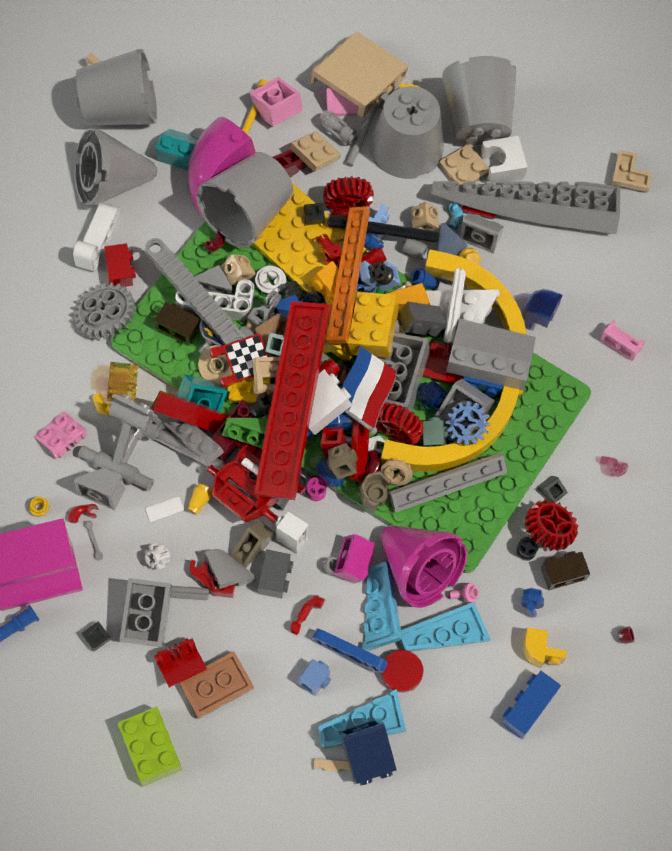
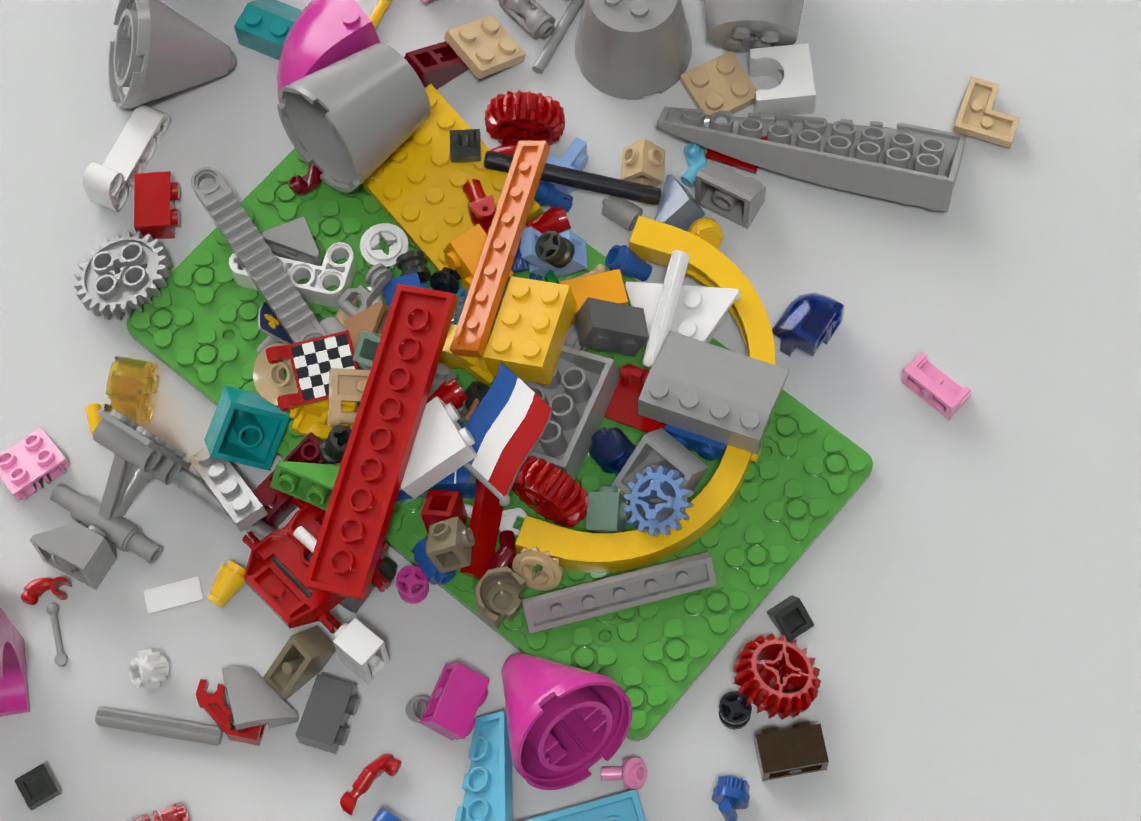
camera: 15 degrees right, 0 degrees up
(145, 612) = (115, 758): light grey brick -> none
(177, 323) = (228, 302): dark brown brick -> none
(188, 411) = (222, 444): red tile -> none
(237, 268) = (333, 224): tan brick -> none
(618, 468) = (900, 592): clear pink plate -> none

